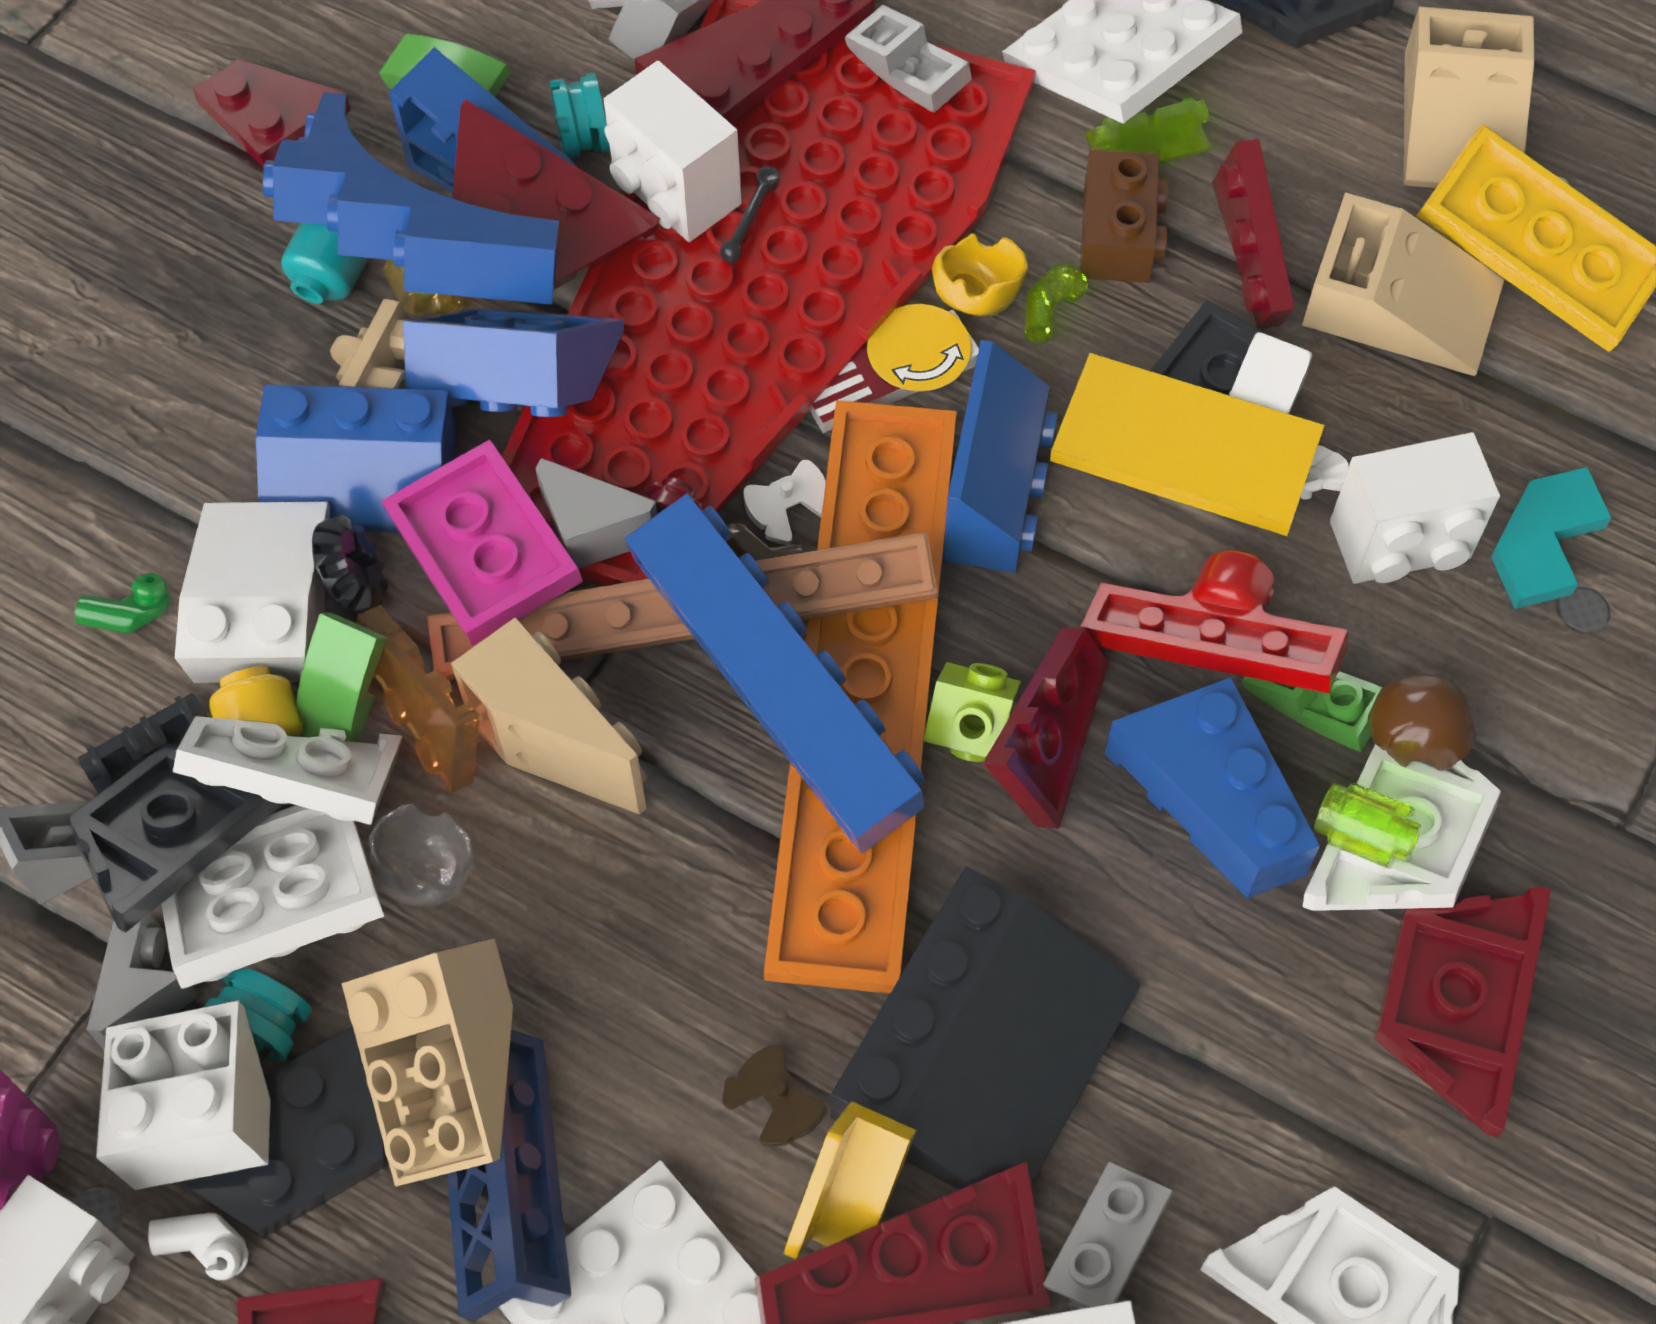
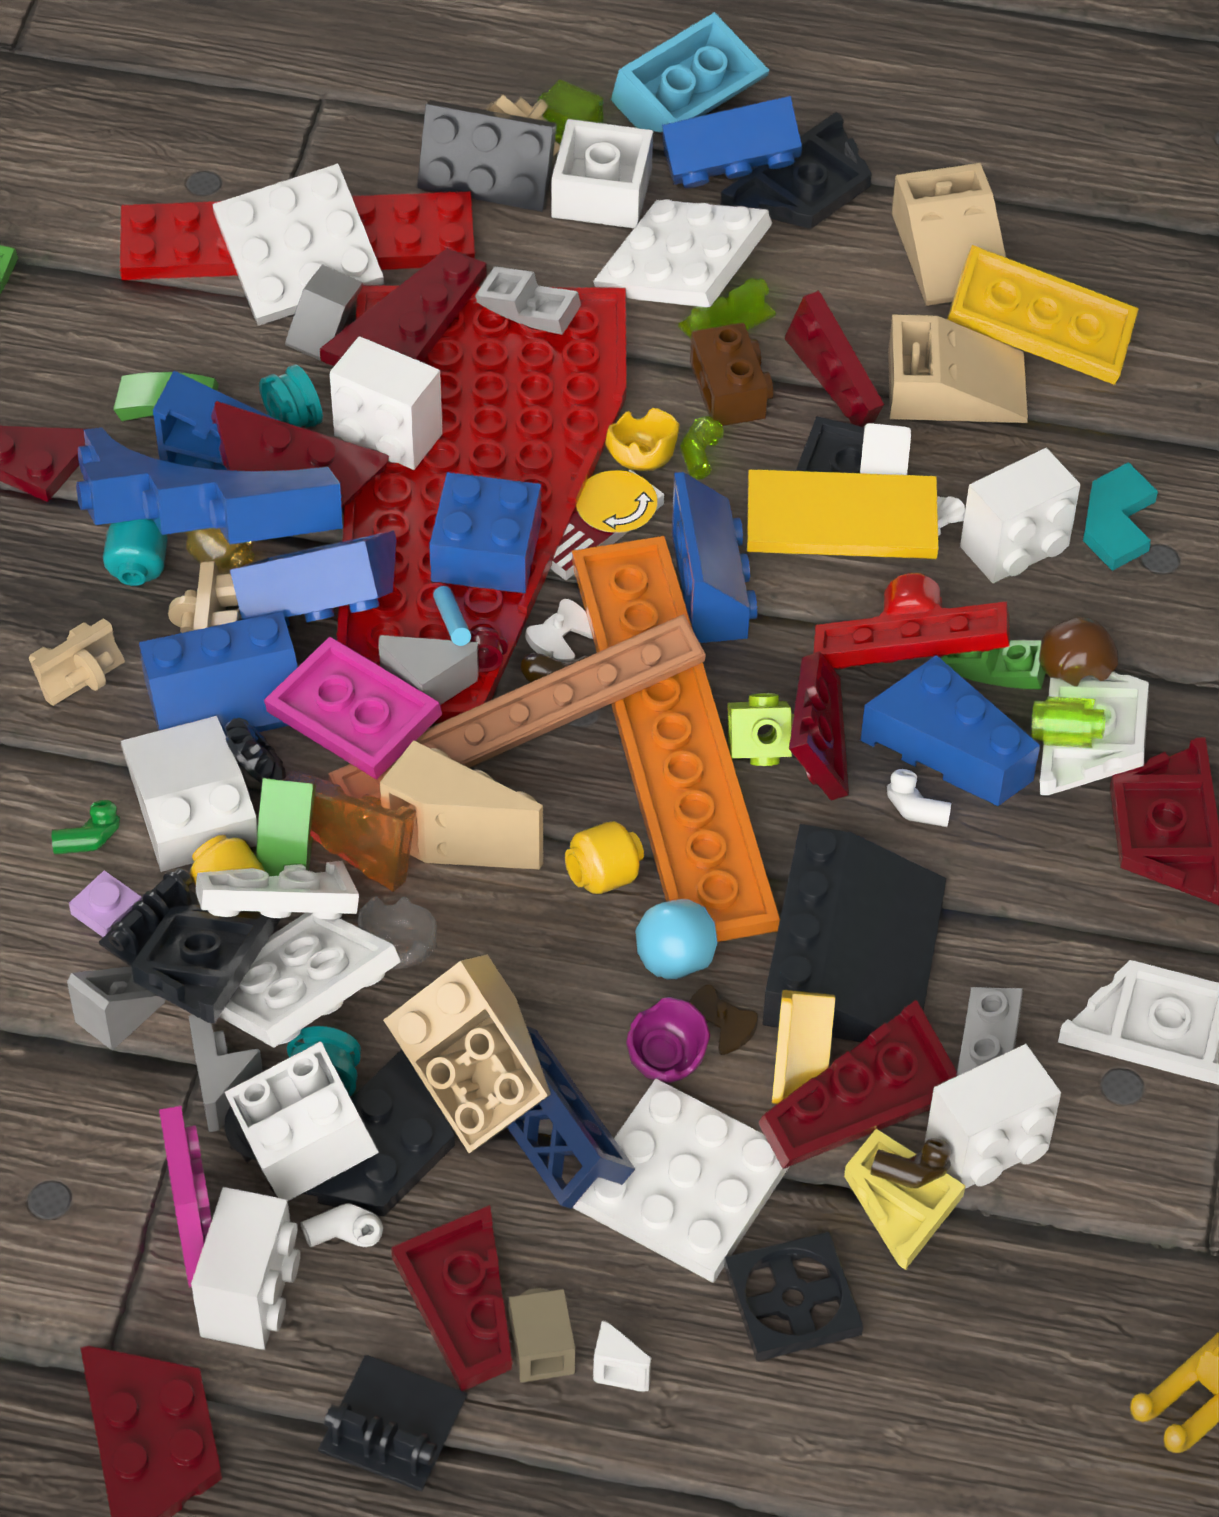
camera: 20 degrees left, 10 degrees down
(105, 707) = (103, 903): none -> lavender plate
(200, 384) = (77, 662): none -> tan hips
(643, 454) = (452, 615): none -> medium azure piece
(690, 1116) = (668, 1040): none -> magenta hair
(713, 830) = (604, 857): none -> yellow head
(731, 352) = (485, 532): none -> blue brick
(757, 973) = (676, 939): none -> medium azure hair
(767, 181) = (455, 412): black hinge -> none
(776, 672) = (613, 733): blue brick -> none
(1134, 866) = (911, 802): none -> white arm

